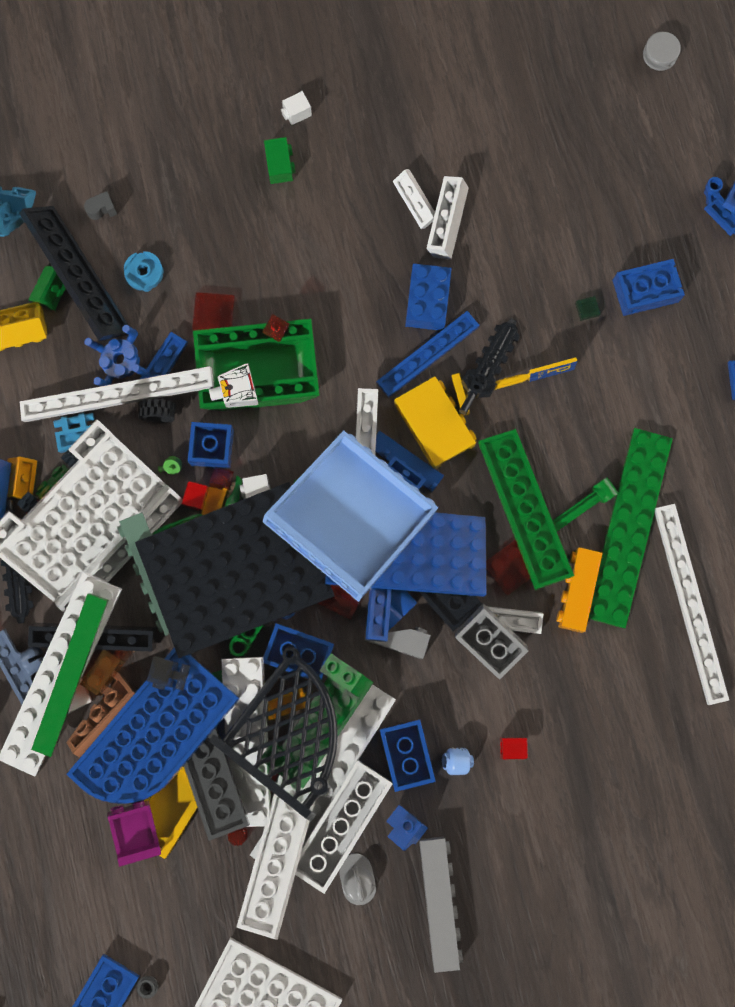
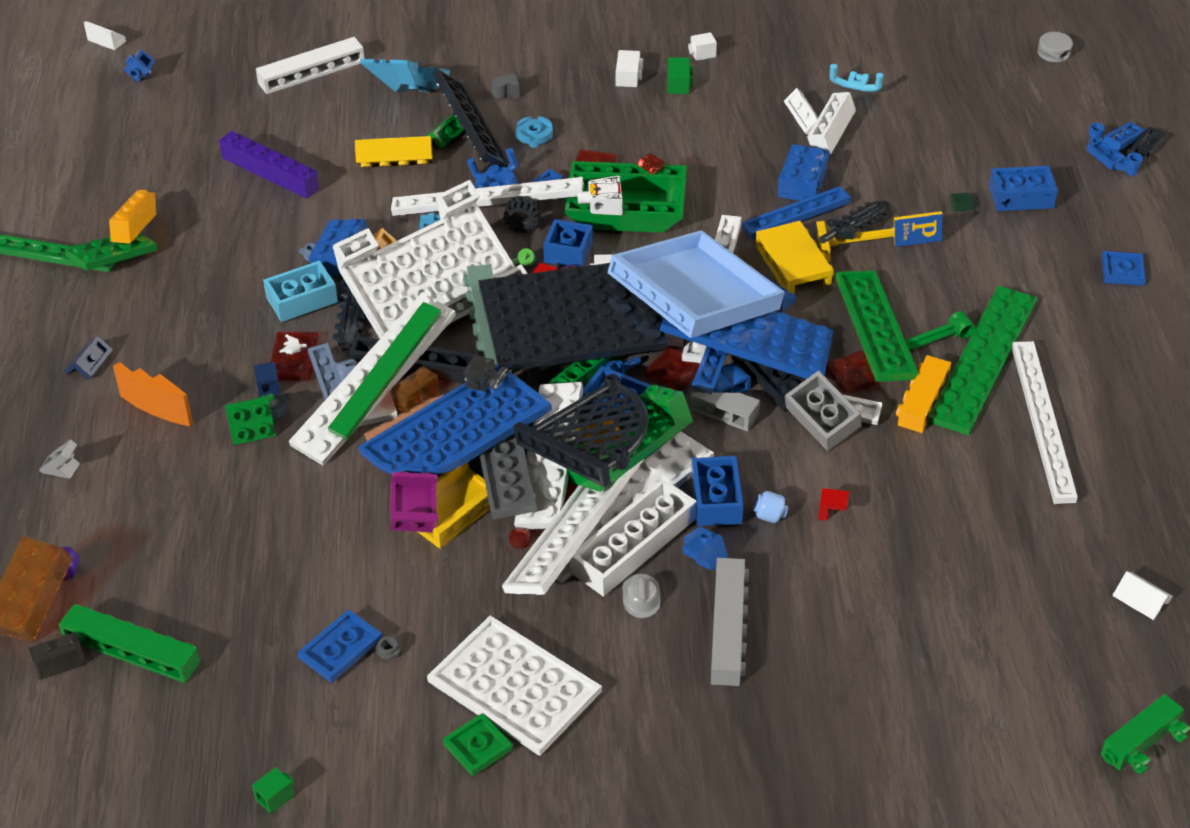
camera: 15 degrees right, 35 degrees down
(223, 157) = (628, 68): none -> white brick
(464, 143) = (856, 81): none -> medium azure piece

